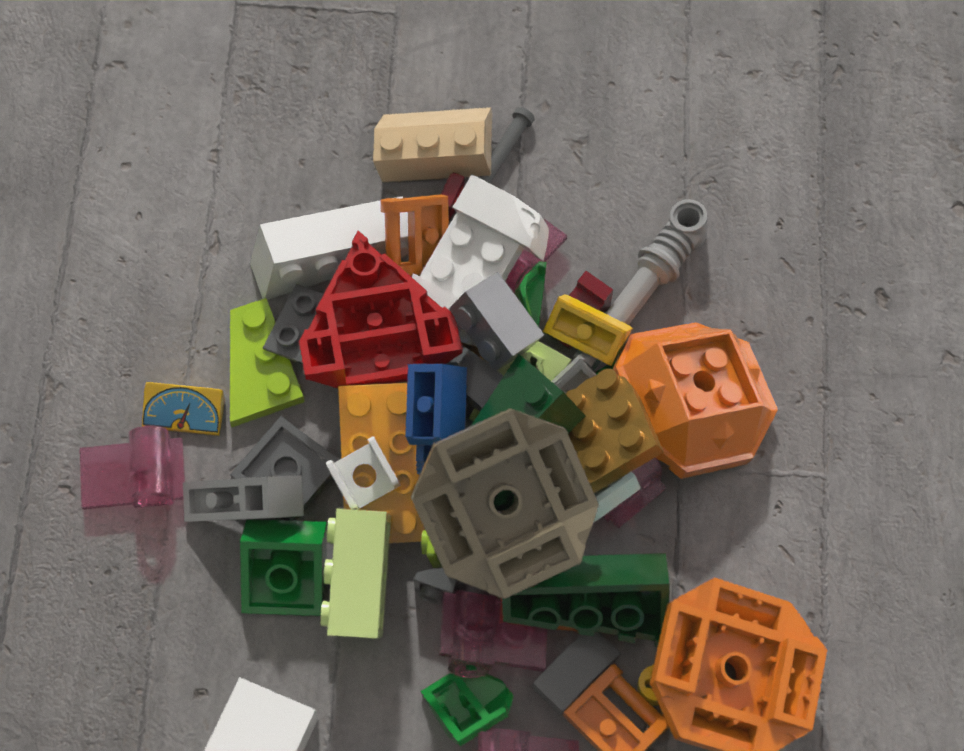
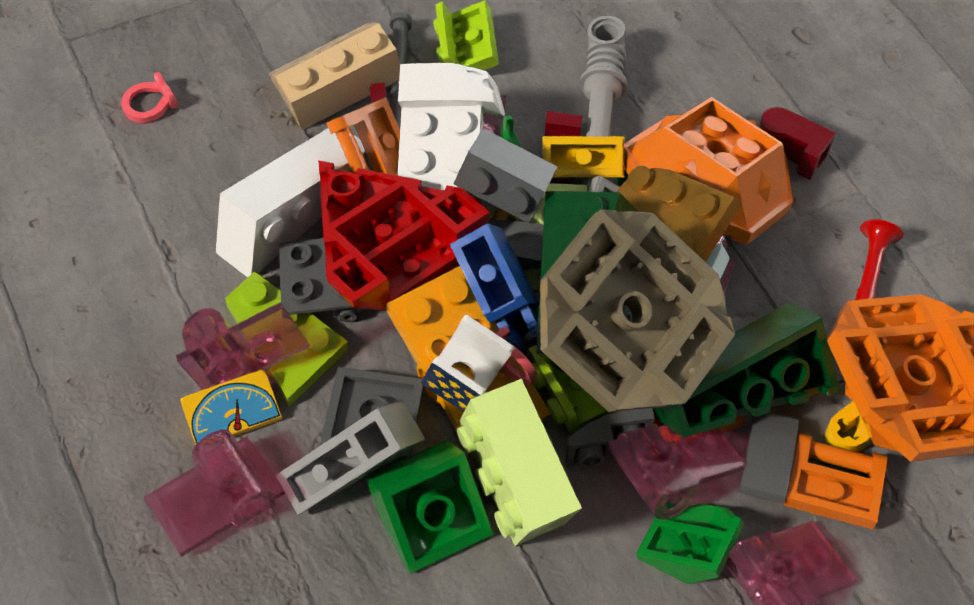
camera: 30 degrees left, 10 degrees down
(192, 361) = (224, 352): none -> clear pink piece
(284, 103) = (167, 101): none -> coral piece
(399, 468) = (511, 371): none -> coral piece
(566, 161) = (466, 36): none -> lime bracket
(797, 401) = (802, 139): none -> dark red leg
(803, 531) = (880, 236): none -> red piece

